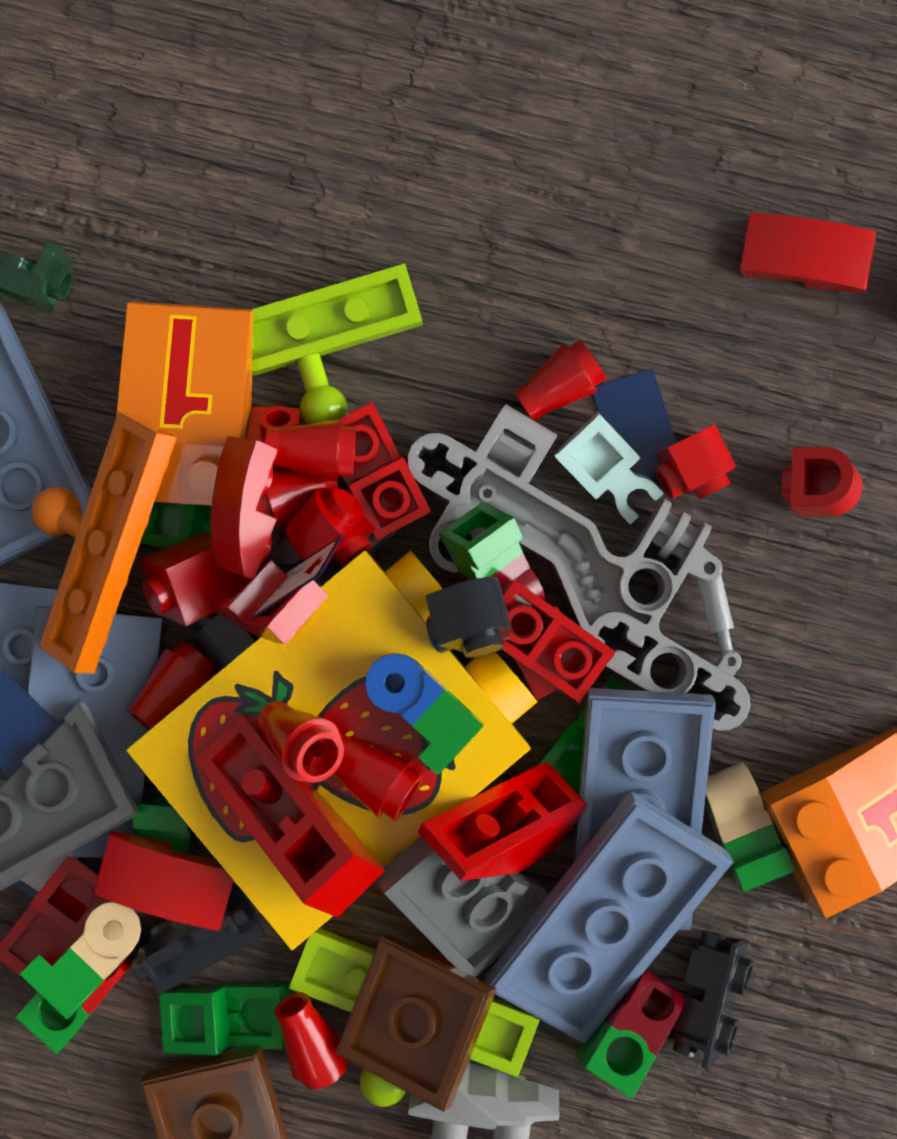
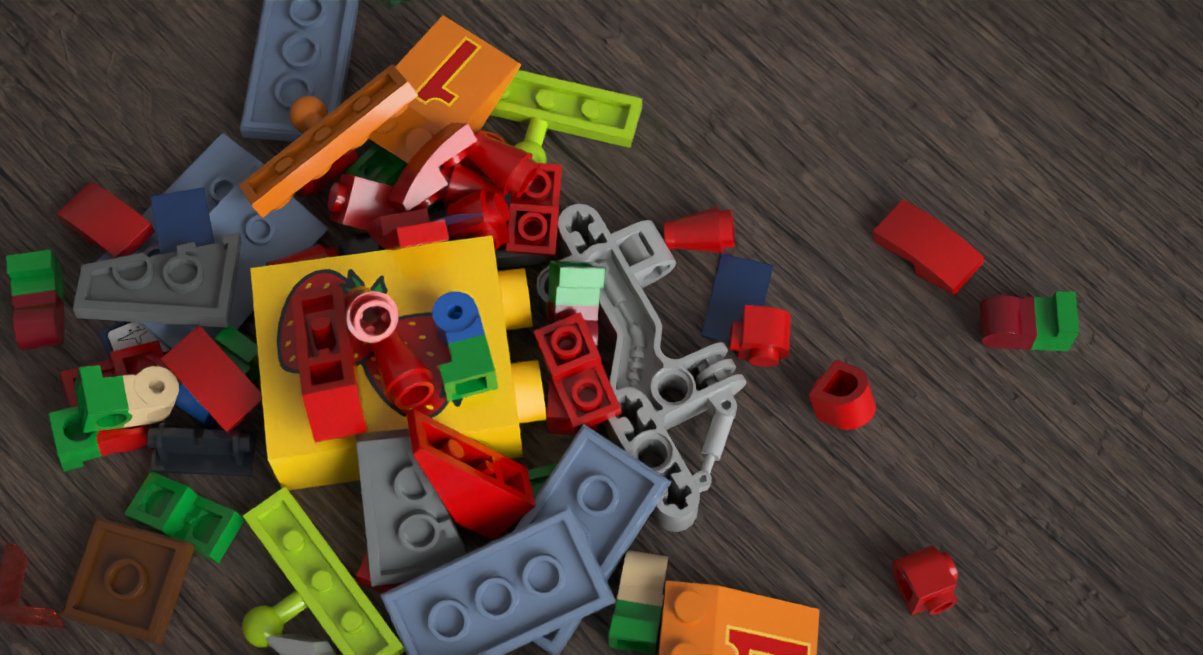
camera: 30 degrees right, 20 degrees down
(309, 1042) = (231, 561): red cone -> none
(416, 1022) = (316, 580): reddish brown plate -> none
(468, 617) = (532, 308): black plate -> none
(603, 462) = (697, 298): light aqua plate -> none

